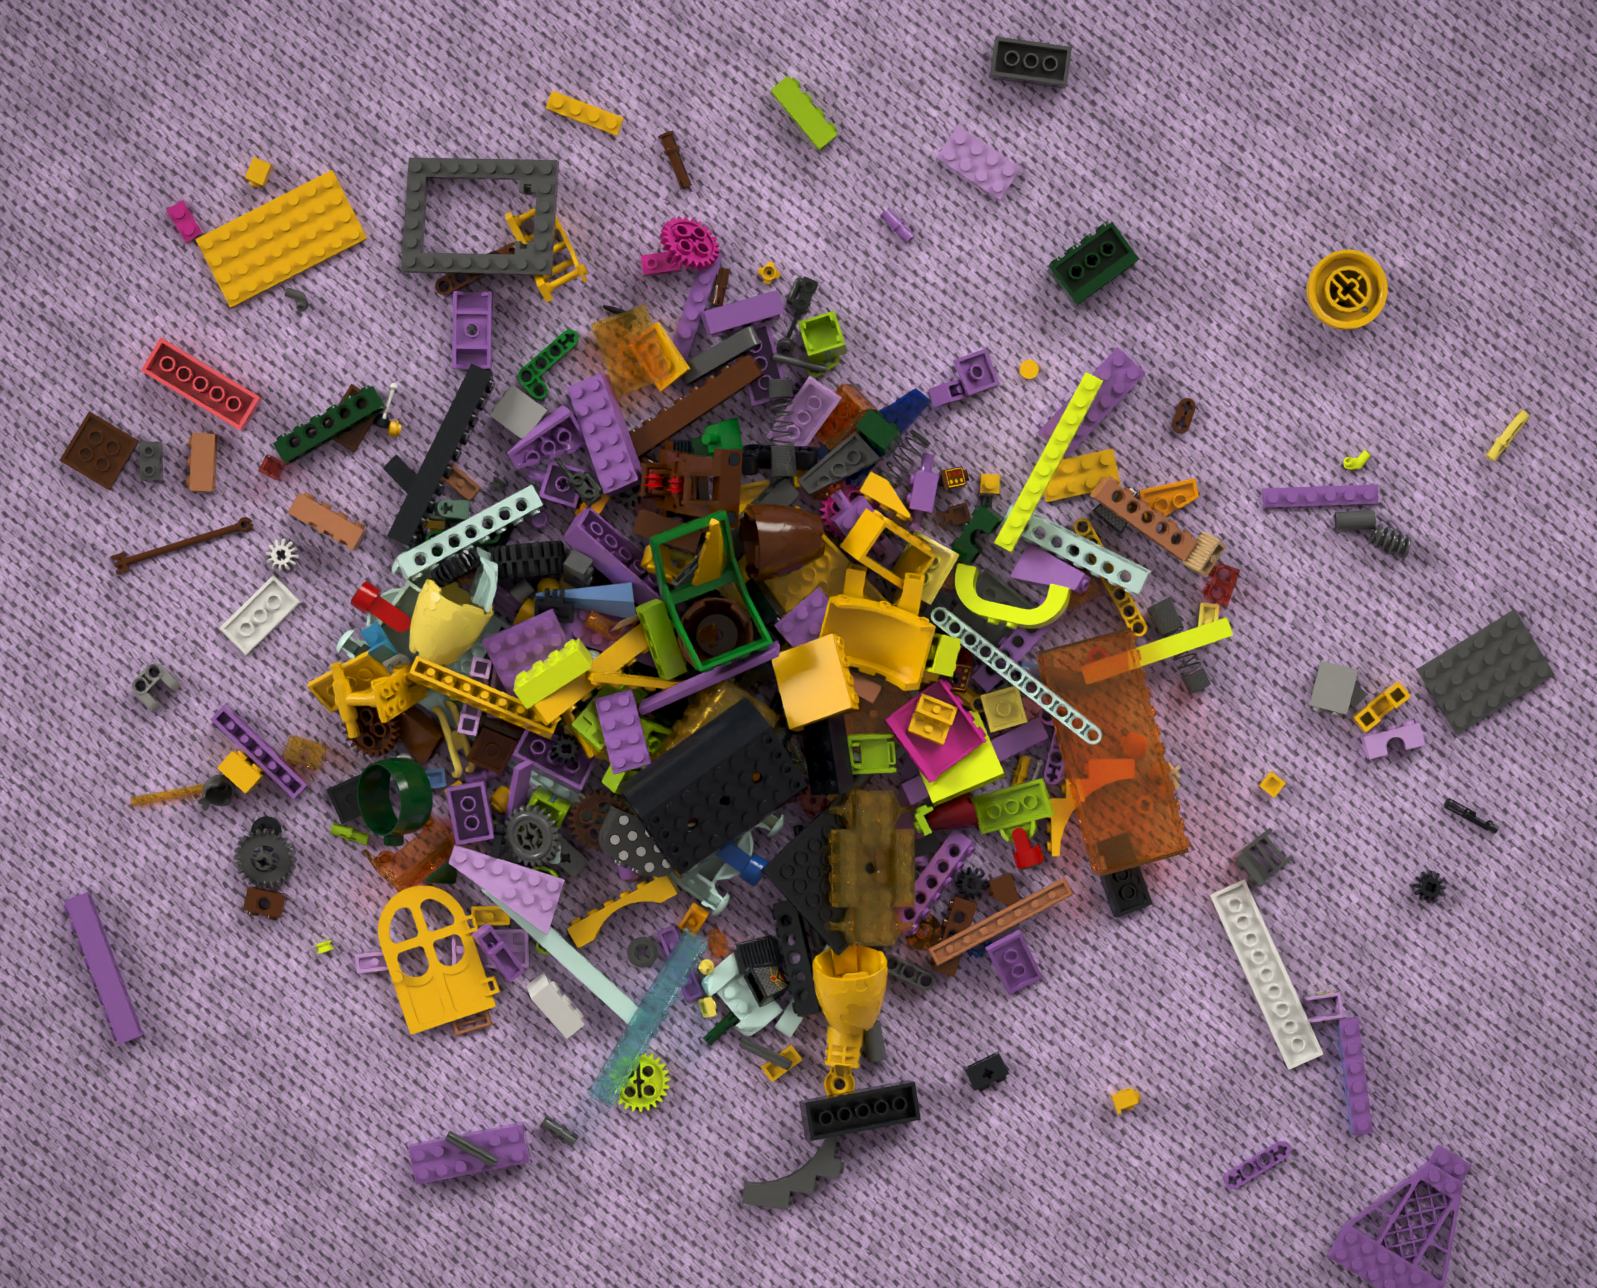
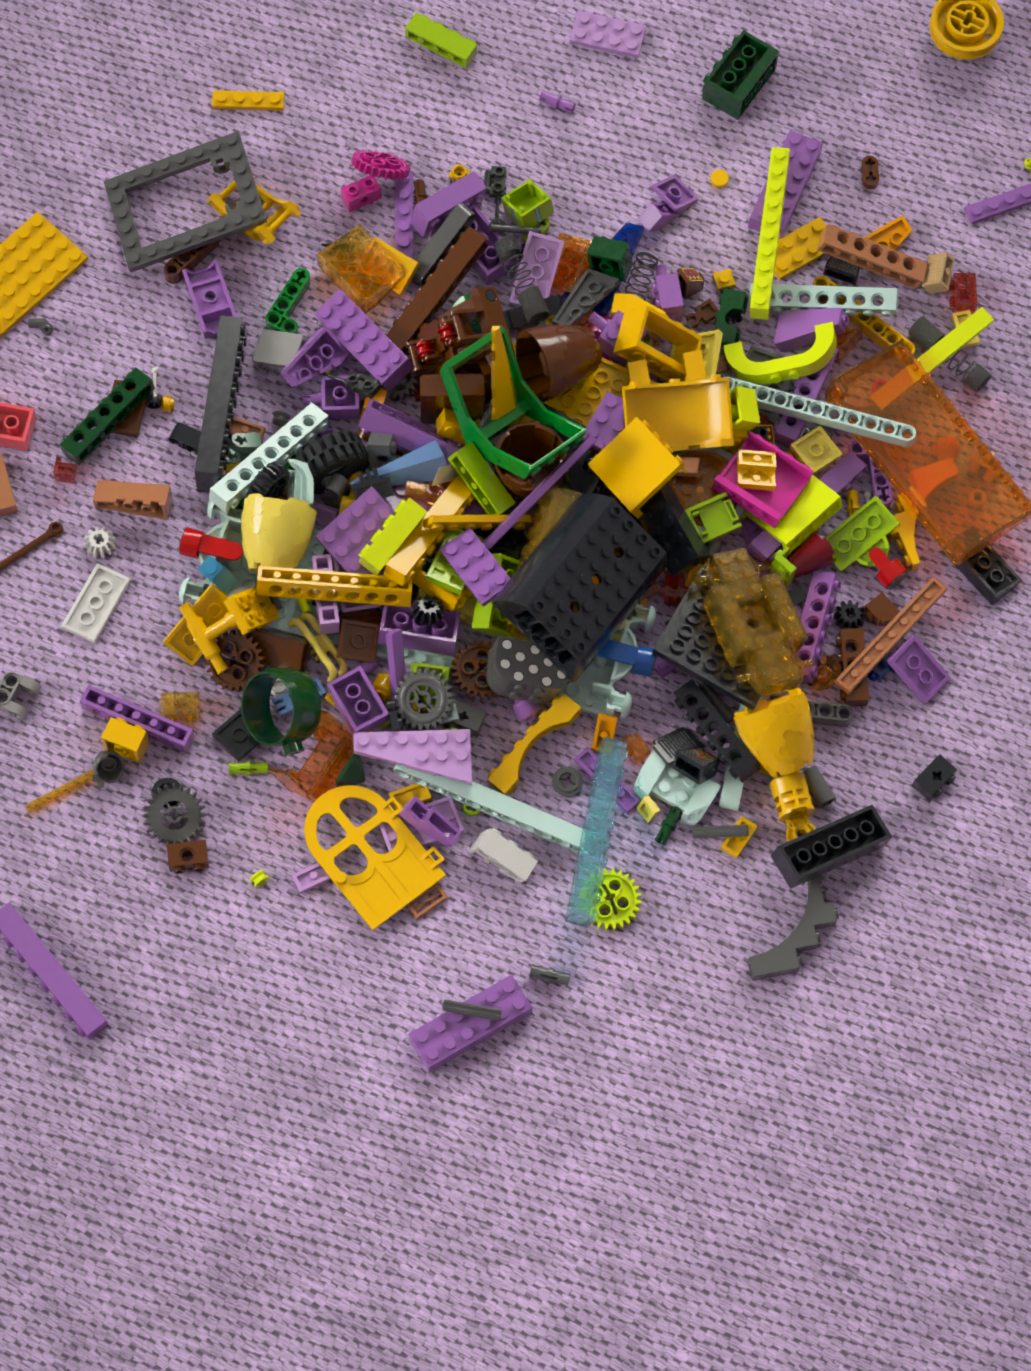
camera: 20 degrees left, 20 degrees down
(672, 151) = (336, 104): reddish brown pin -> none
(706, 966) = (633, 769): light yellow axle -> none

